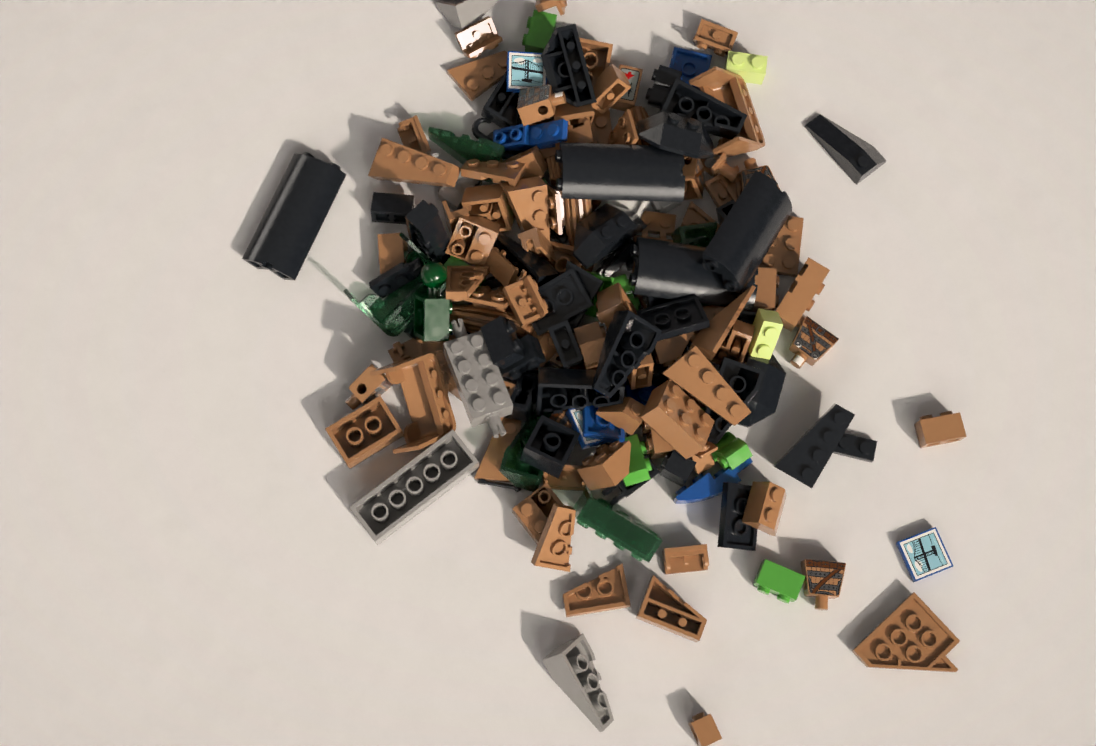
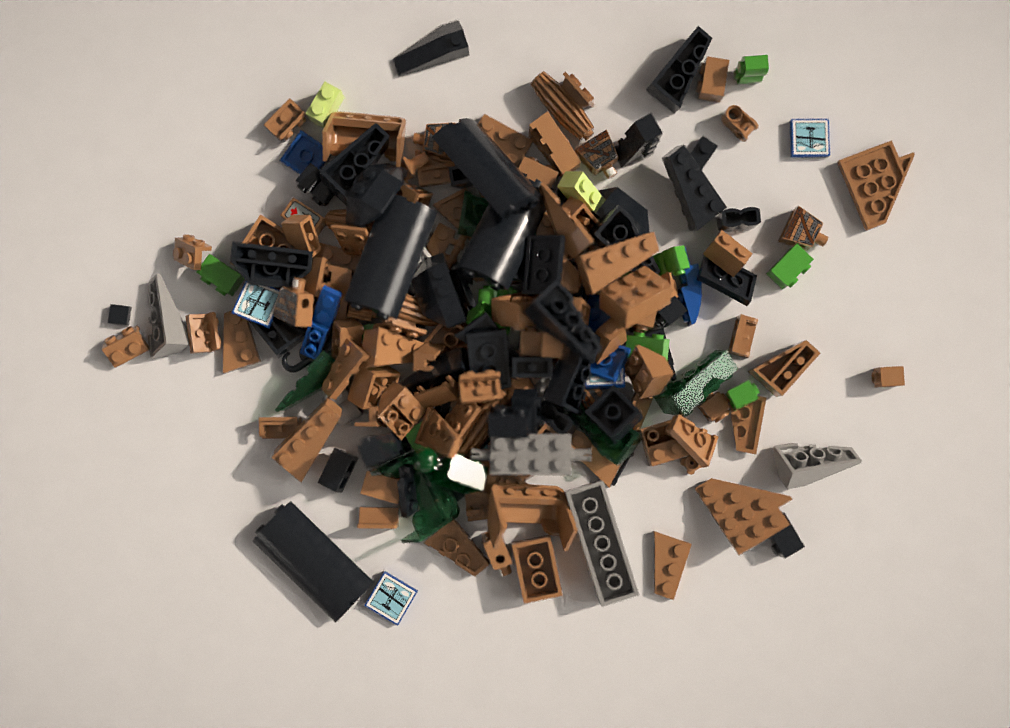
camera: 60 degrees left, 10 degrees up
(284, 304) = (391, 598): none -> tile
(358, 350) = (459, 547): none -> medium nougat wing
(360, 263) = (378, 517): none -> medium nougat panel
(418, 568) = (669, 560): none -> medium nougat wing
(491, 675) = (786, 541): none -> black brick
(500, 623) = (744, 512): none -> medium nougat wing
(525, 555) = (690, 468): none -> medium nougat plate
(600, 555) = (715, 407): none -> medium nougat brick
(621, 572) = (742, 395): none -> bright green brick
(807, 511) = (741, 219): none -> black brick
(839, 373) = (639, 141): none -> black wedge
(850, 291) = (566, 102): none -> medium nougat plate
(906, 477) = (740, 123): none -> medium nougat piece
(933, 391) = (677, 75): none -> black wedge
(966, 461) = (751, 69): none -> bright green brick

